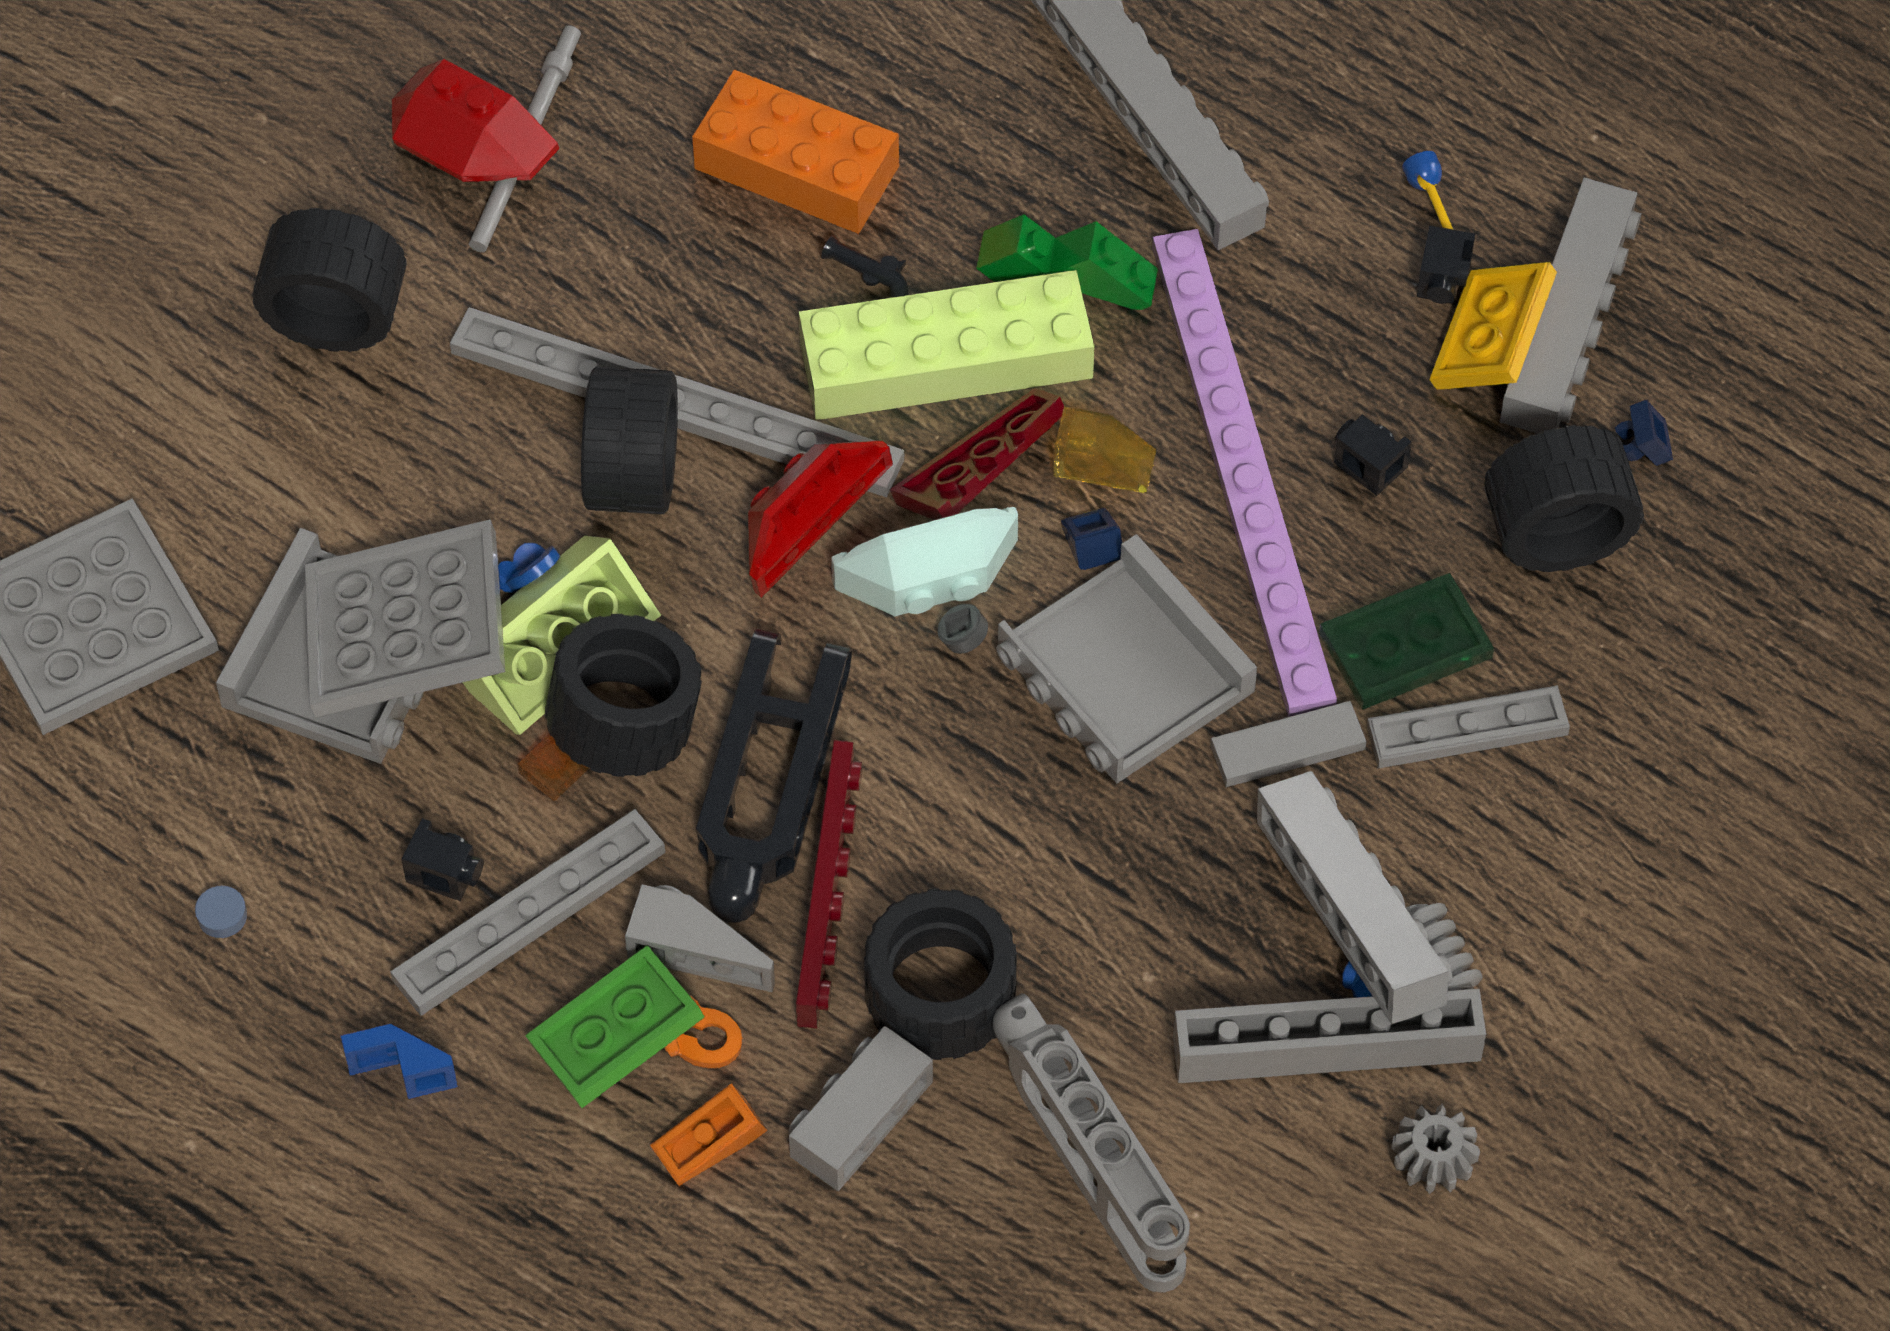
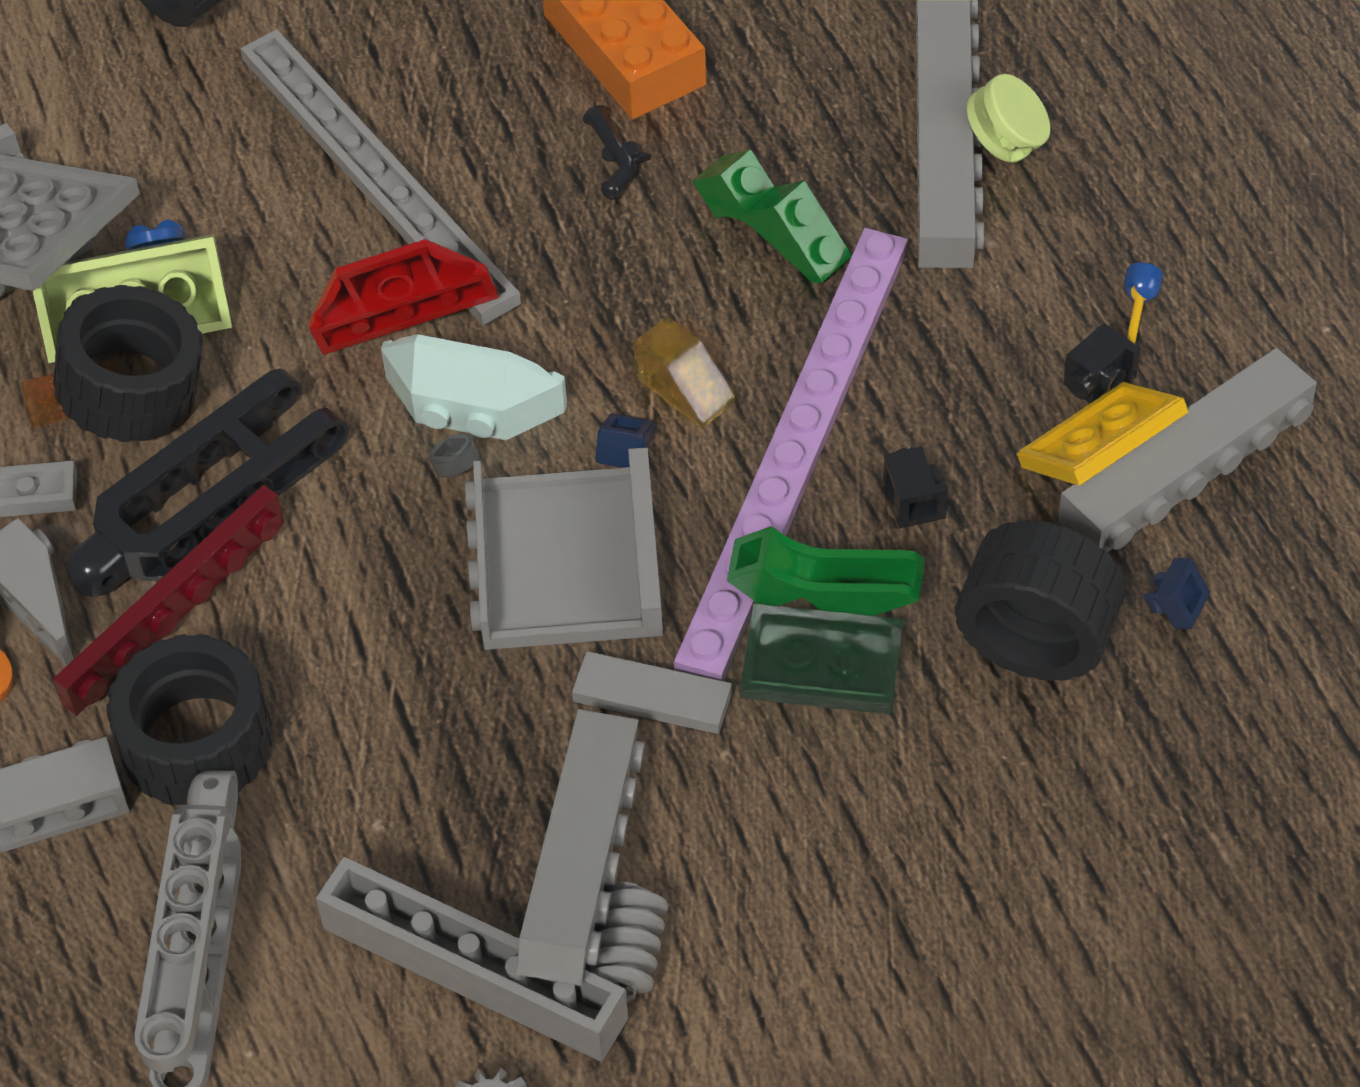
camera: 35 degrees right, 5 degrees down
(629, 440) = (292, 171): black tyre -> none
(946, 345) = (621, 229): yellowish green brick -> none
(972, 463) = (575, 326): dark red wing -> none
(1209, 71) = (1008, 118): none -> yellowish green head
(1329, 582) = (849, 581): none -> green arch
(1468, 726) = (824, 762): light grey tile -> none

